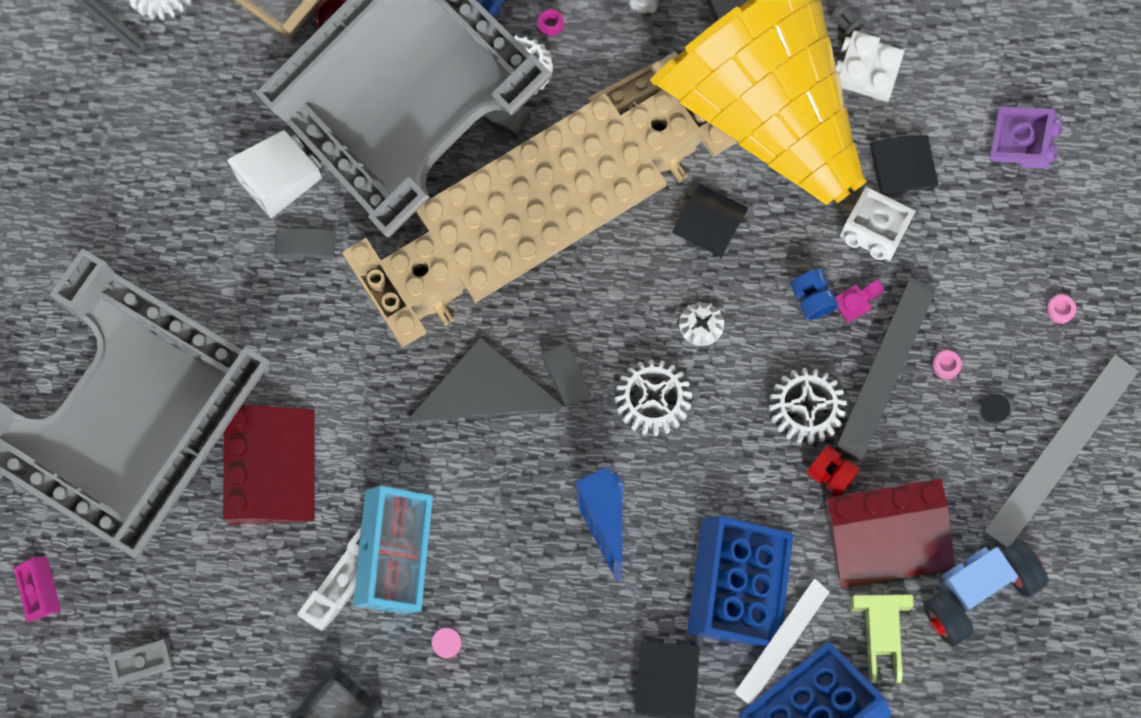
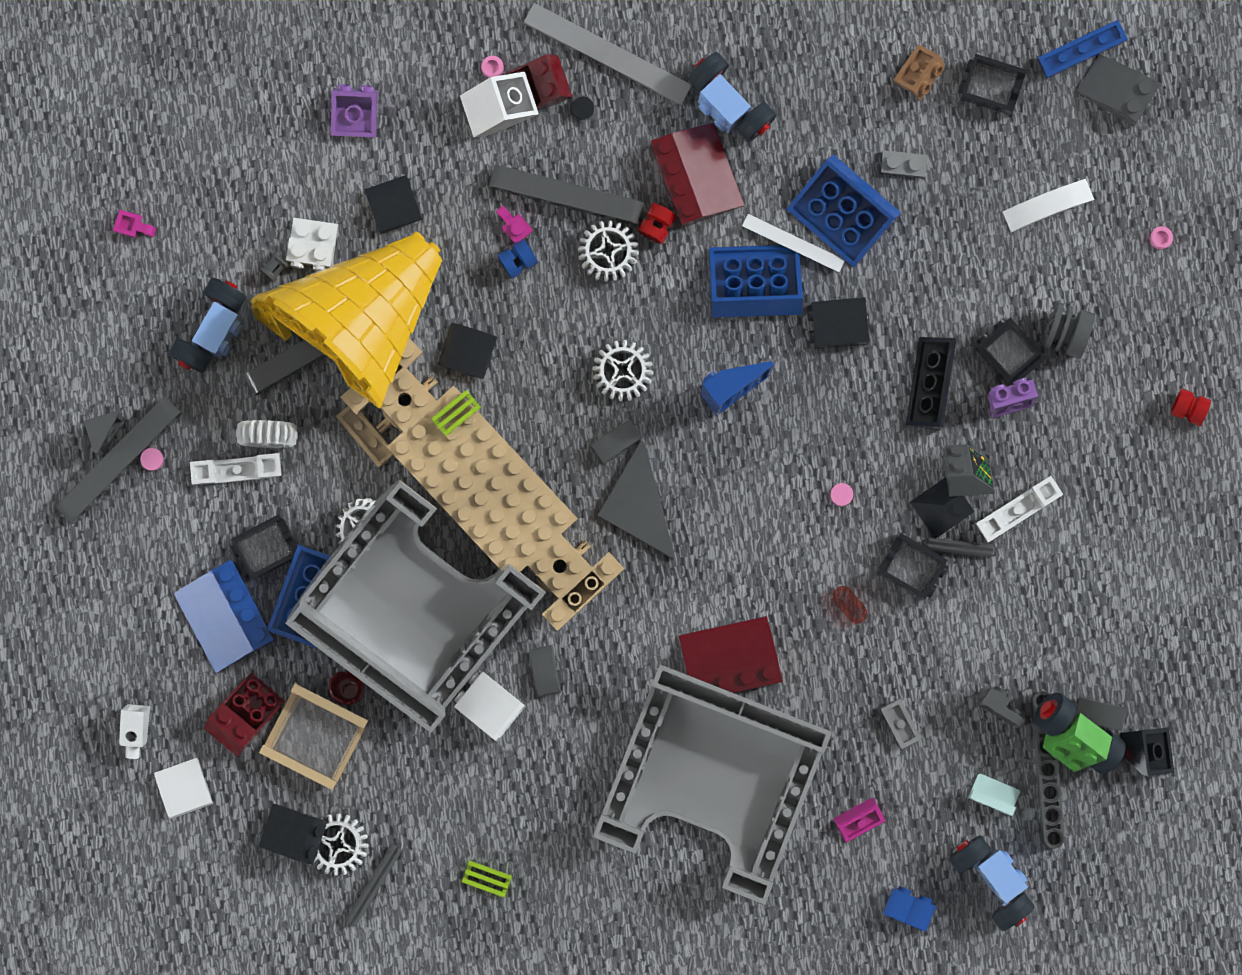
camera: 105 degrees left, 10 degrees up
(71, 135) = (468, 872): none -> lime tile
(303, 636) = (853, 599): none -> clear red beam
(335, 590) = (807, 582): white slope -> none
(393, 550) = (782, 546): brick -> none
(547, 16) = (310, 505): dark pink plate -> none
(619, 155) = (471, 400): none -> lime tile
(701, 336) = (554, 354): white gear -> none
(877, 224) = (449, 218): white plate -> none
(883, 628) = (771, 169): yellowish green piece -> none
(947, 364) = (553, 149): bright pink tile -> none
(1014, 302) = (498, 103): none -> white slope
(1030, 351) = (545, 80): none -> dark red slope

